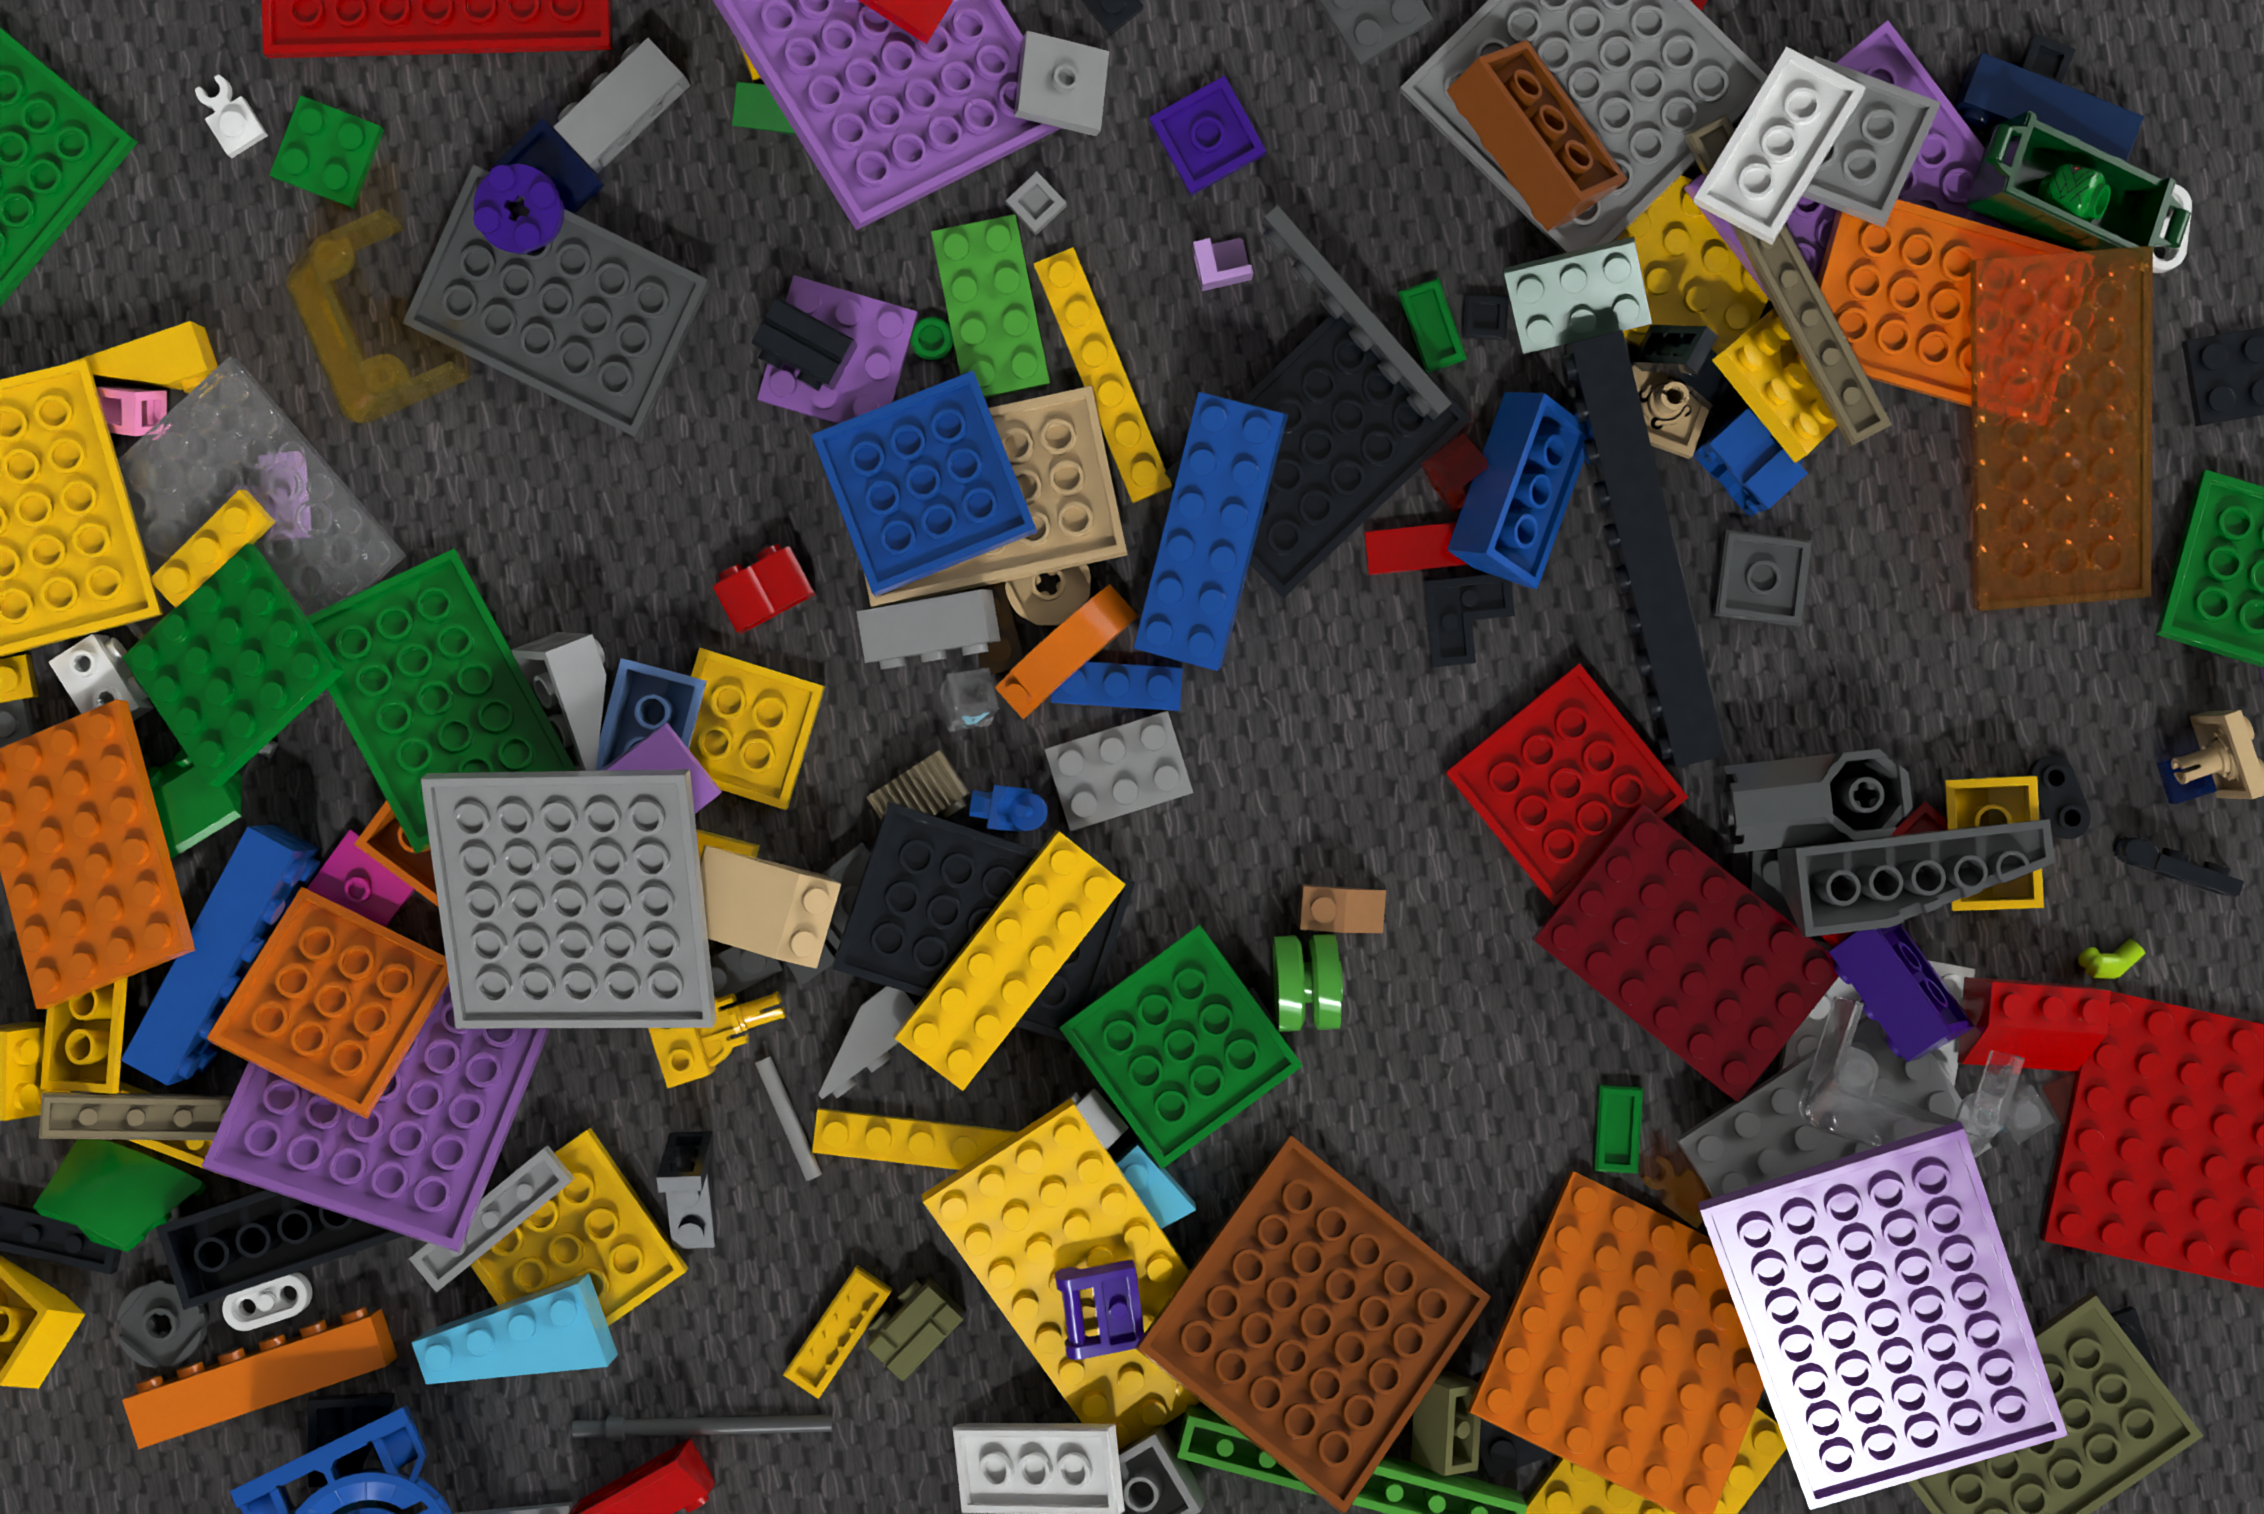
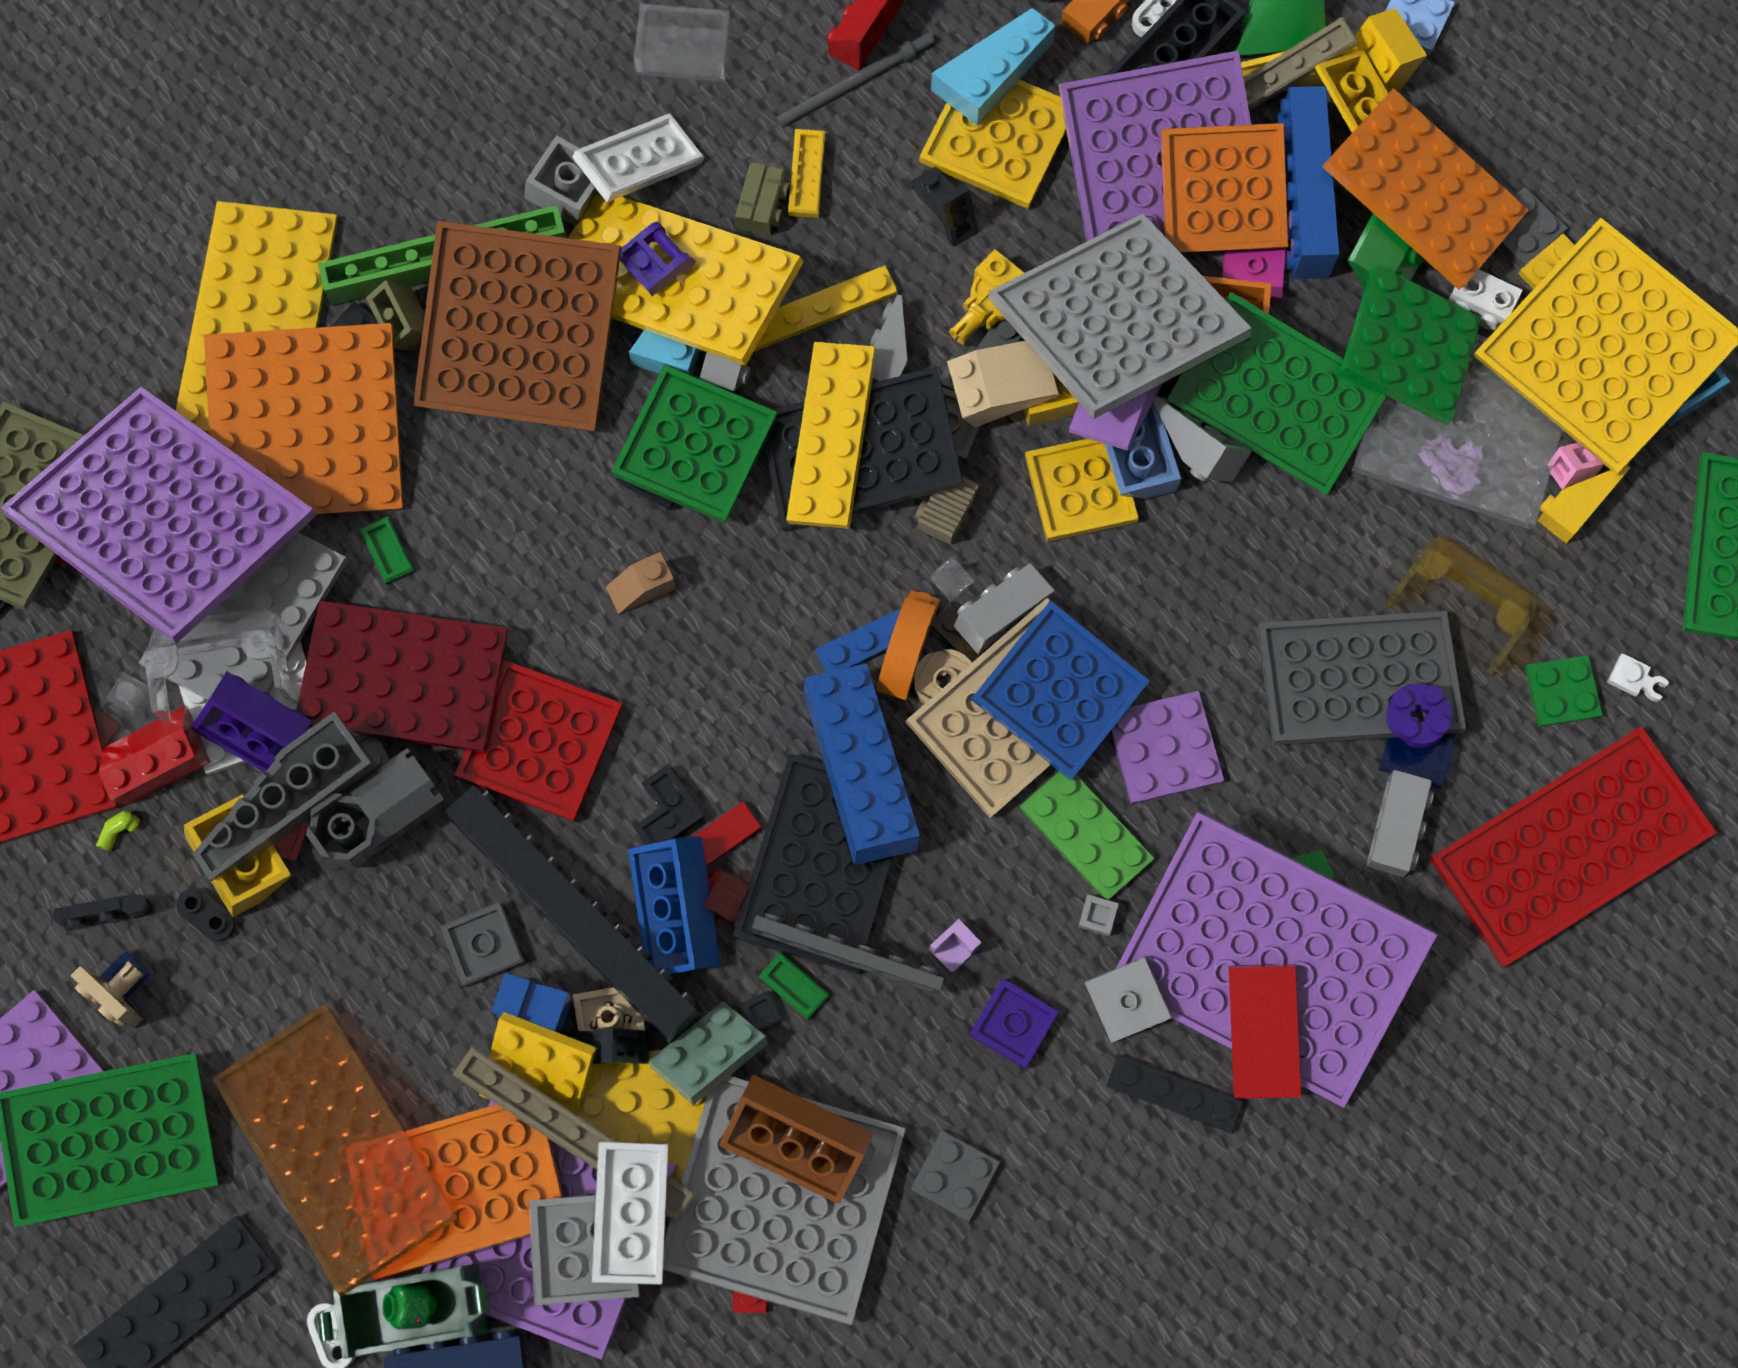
camera: 150 degrees right, 15 degrees down
(218, 540) = (1469, 409): yellow plate -> none
(496, 1217) = (1049, 128): light grey plate -> none
(764, 588) = (1120, 577): red brick -> none
(788, 1118) = (911, 278): light grey bar -> none
(803, 344) = (1188, 733): black brick -> none
(931, 339) = (1112, 792): green tile -> none
(1009, 808) = (887, 525): blue hips -> none
(1102, 369) = (989, 832): yellow plate -> none
(1118, 771) = (831, 592): light grey plate -> none
(1311, 982) = (640, 521): bright green wheel -> none
(1681, 1191) = (326, 533): clear orange plate -> none

